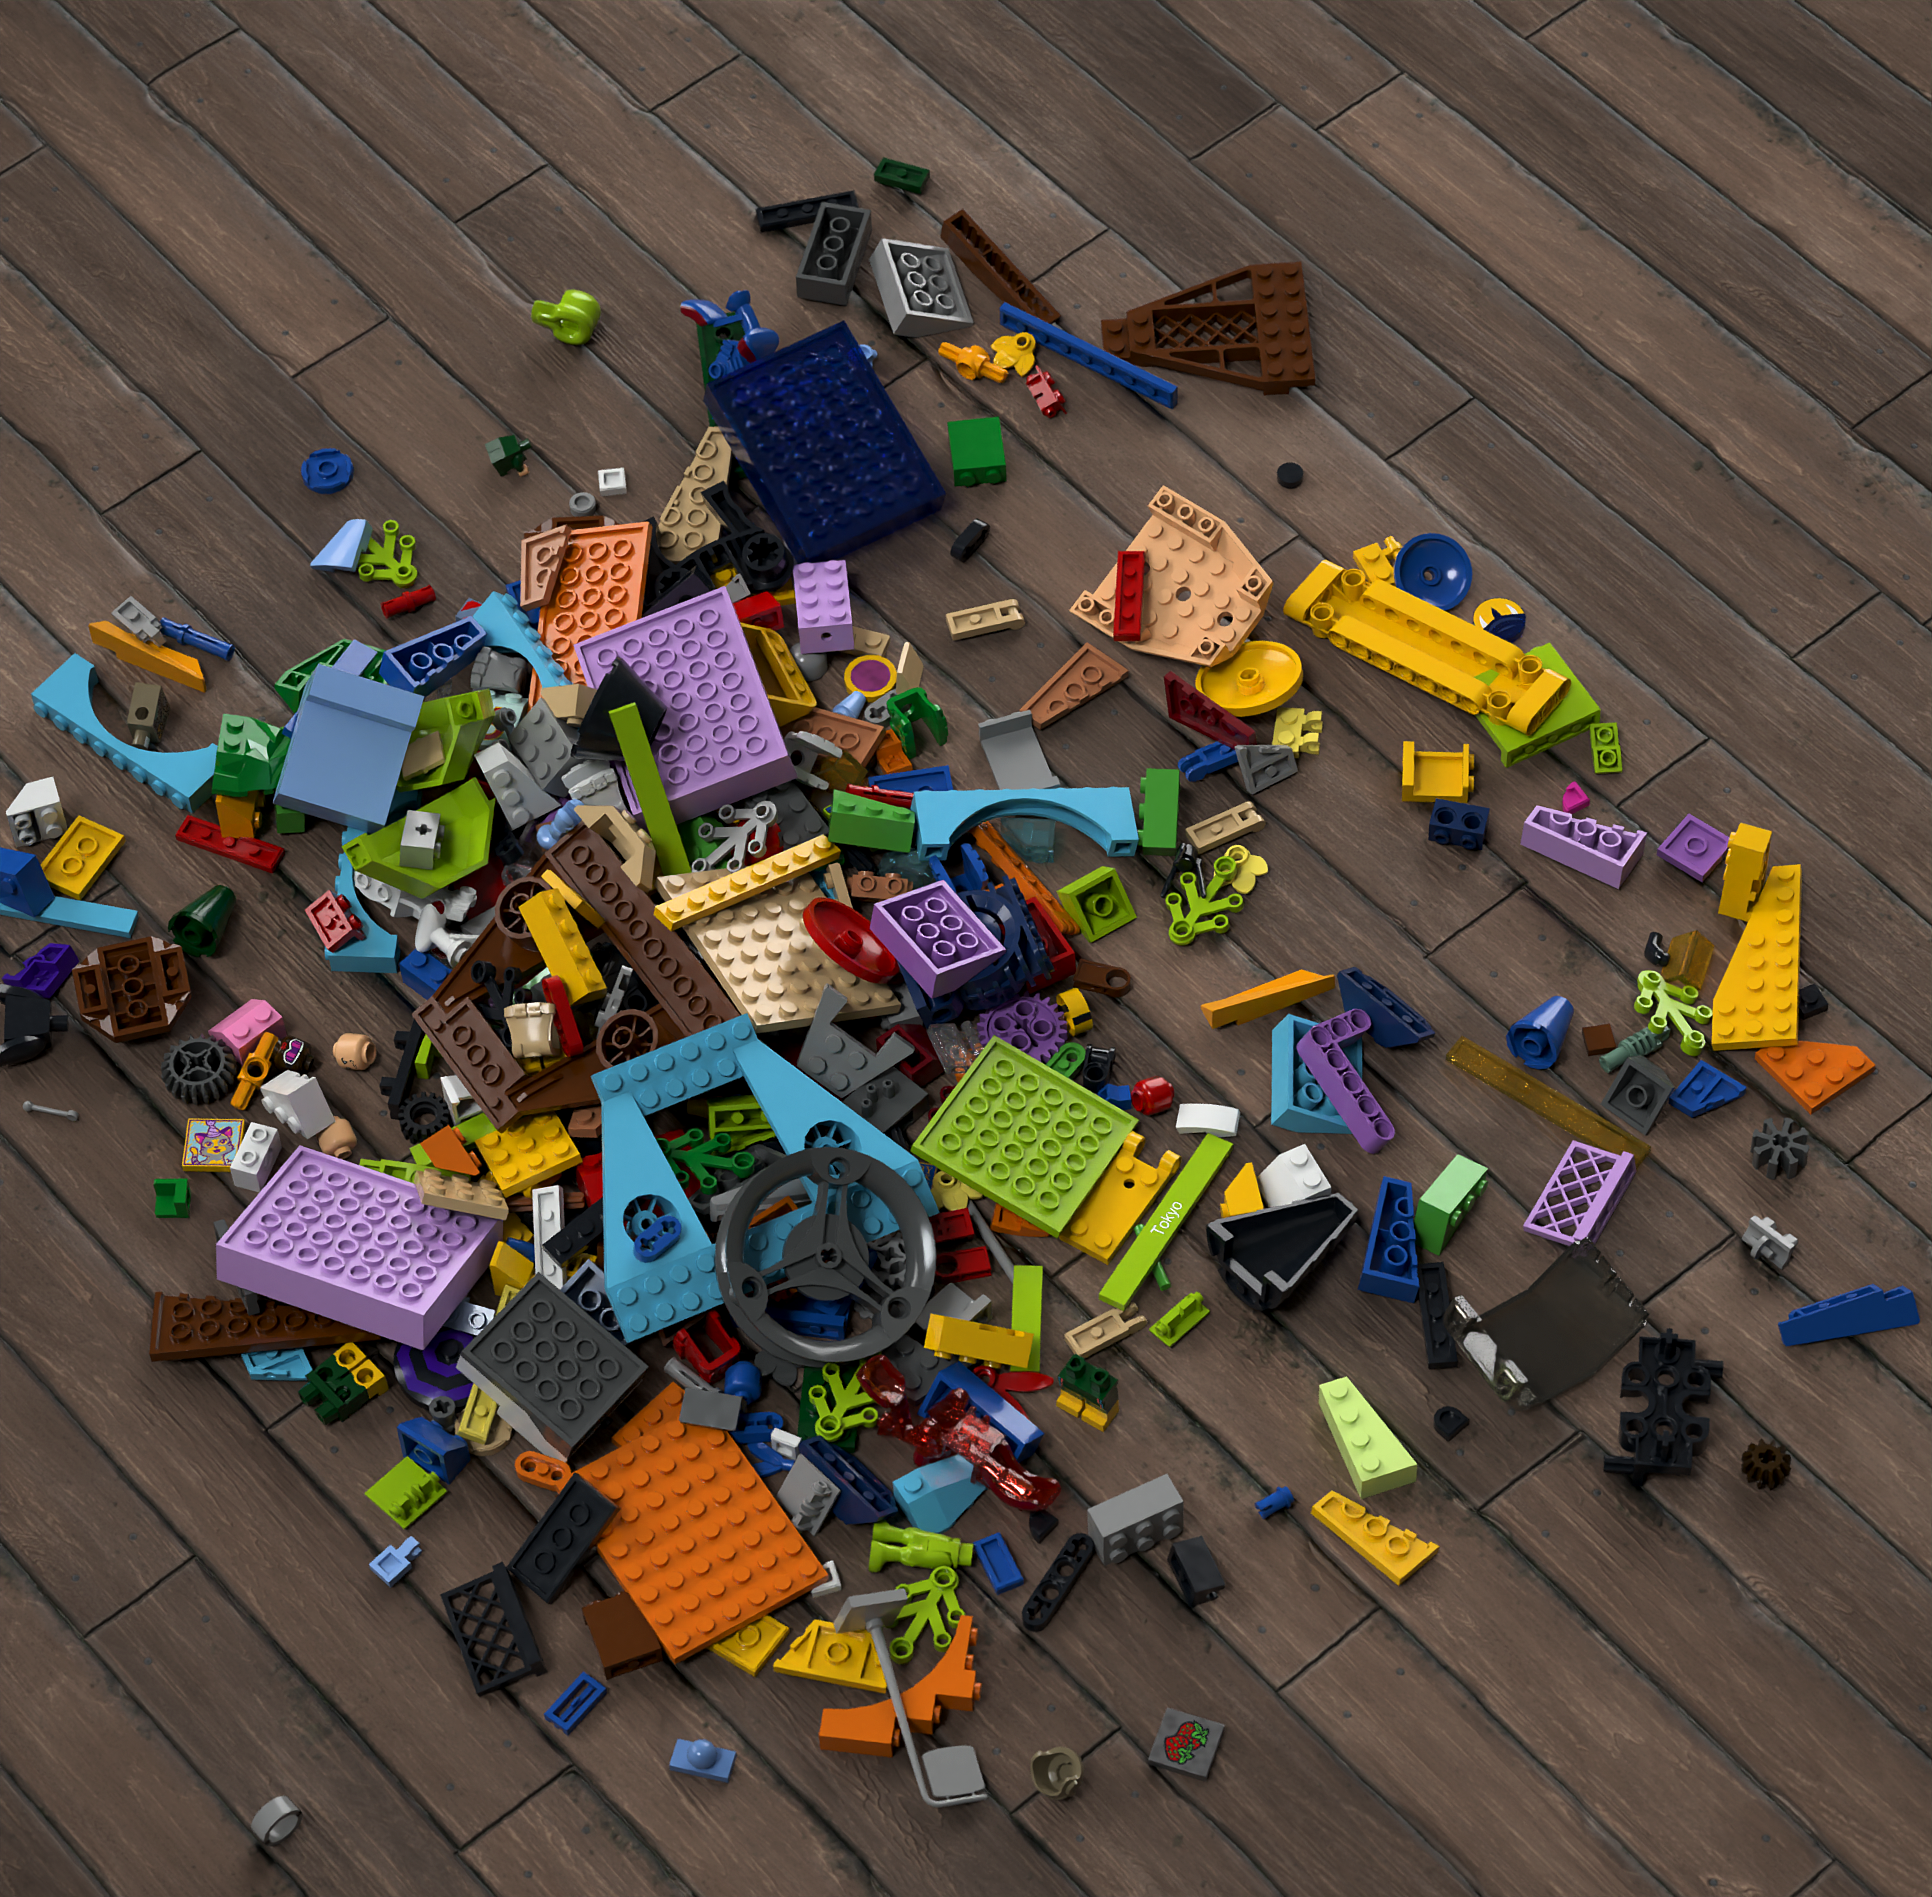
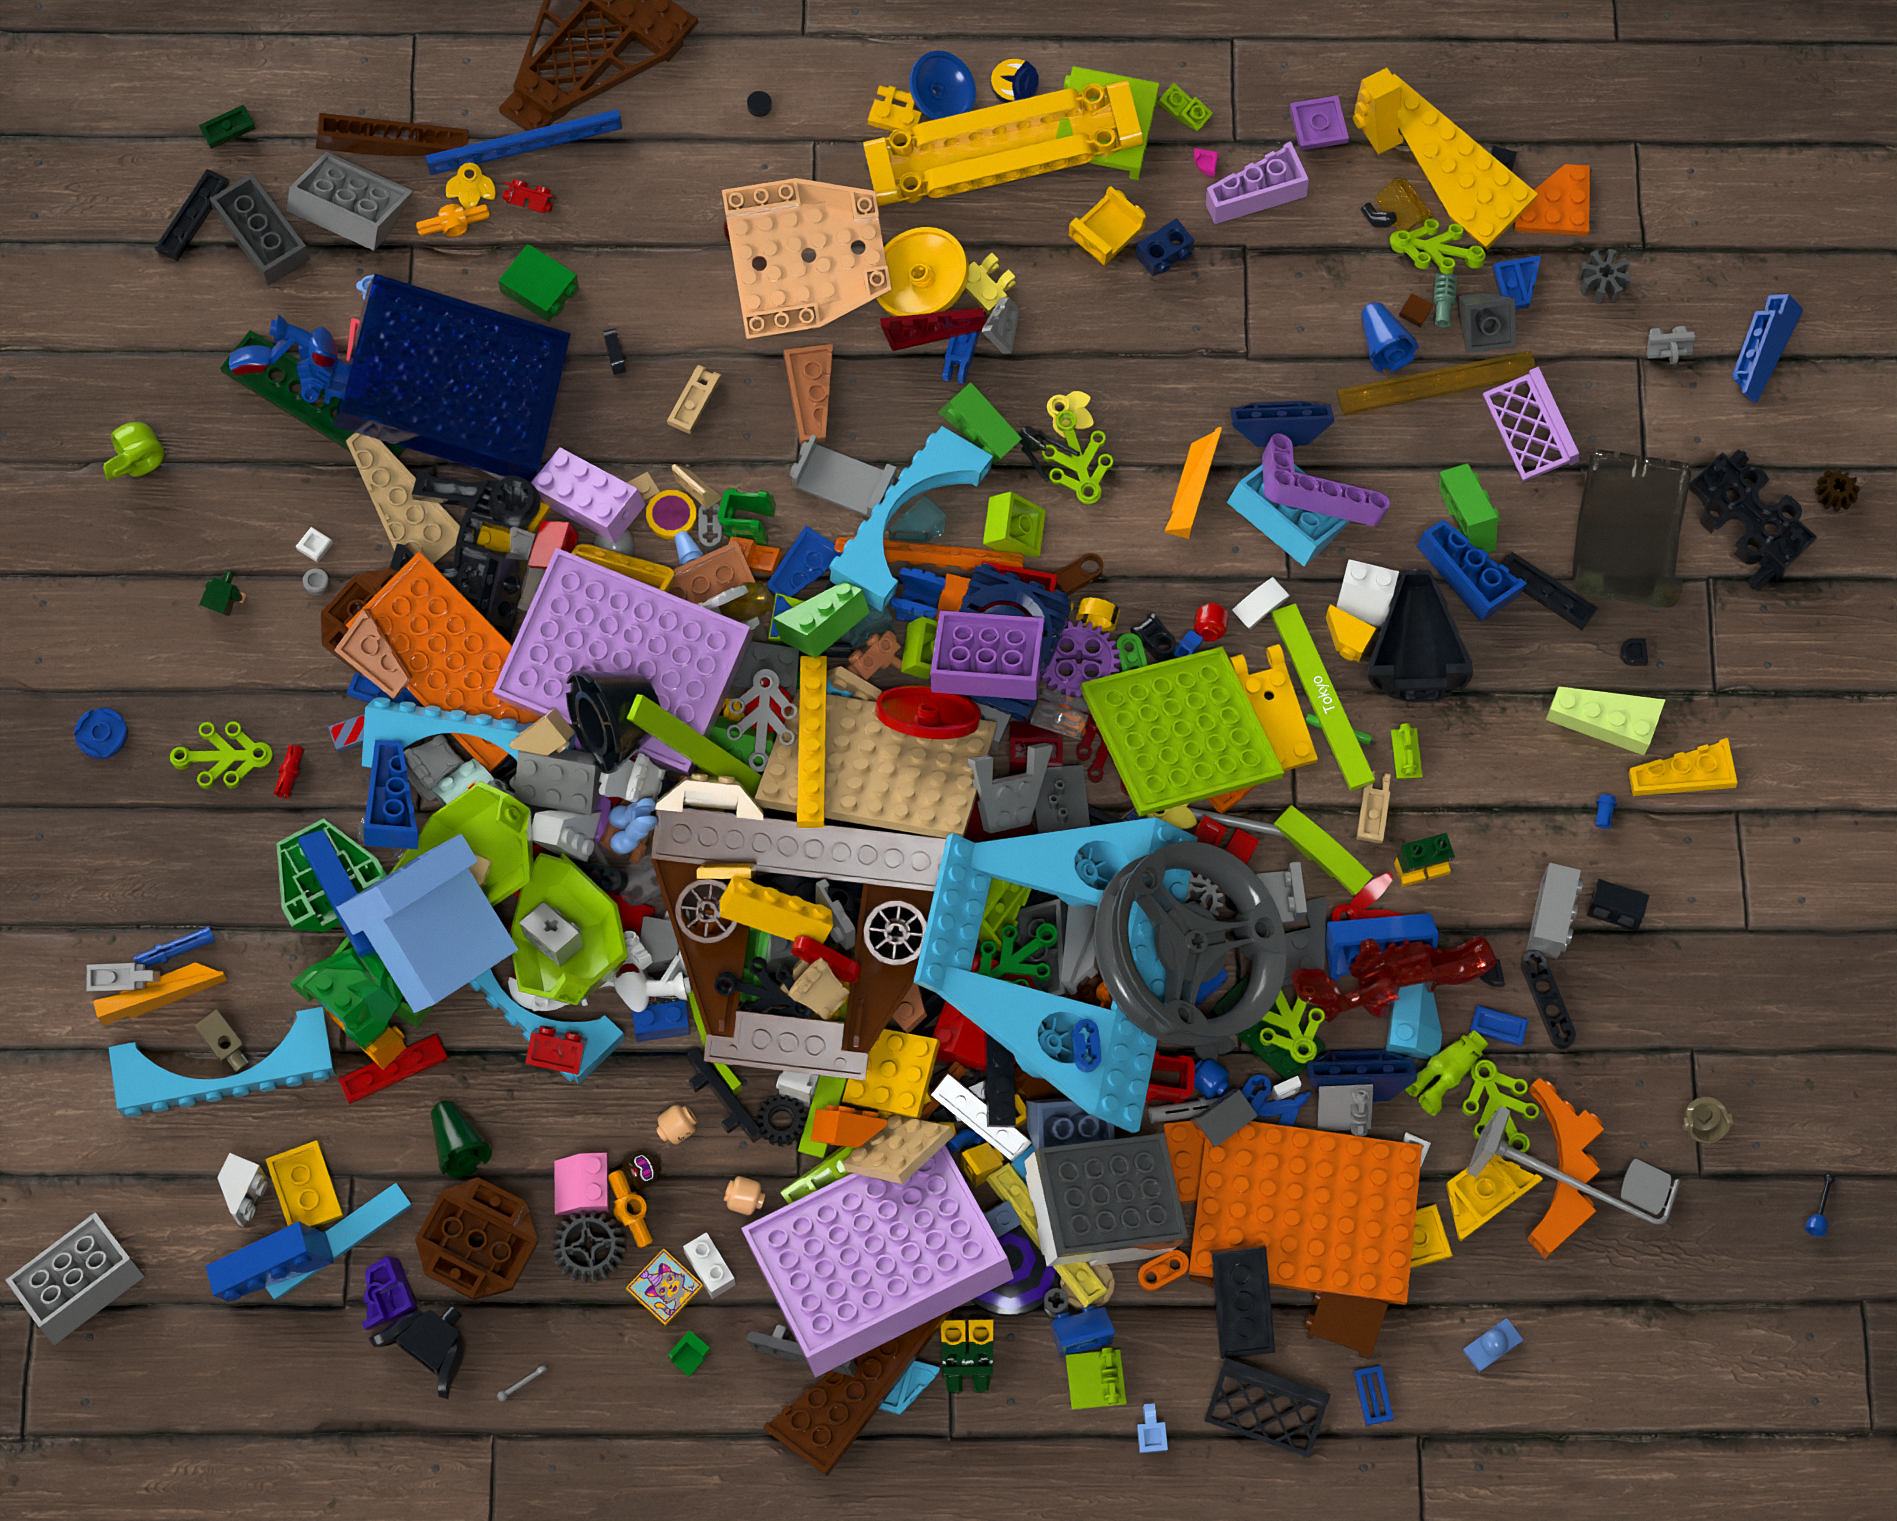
camera: 55 degrees left, 15 degrees up
(298, 1103) = (696, 1201): white wedge -> none
(345, 547) = (195, 778): light blue slope -> none
(890, 797) = (818, 572): red pin -> none
(977, 1341) = (1331, 895): yellow wedge -> none
(1129, 596) = (782, 290): red tile -> none
(1186, 1744) = (1743, 1019): flat silver tile -> none
(1225, 827) = (1025, 394): tan plate -> none

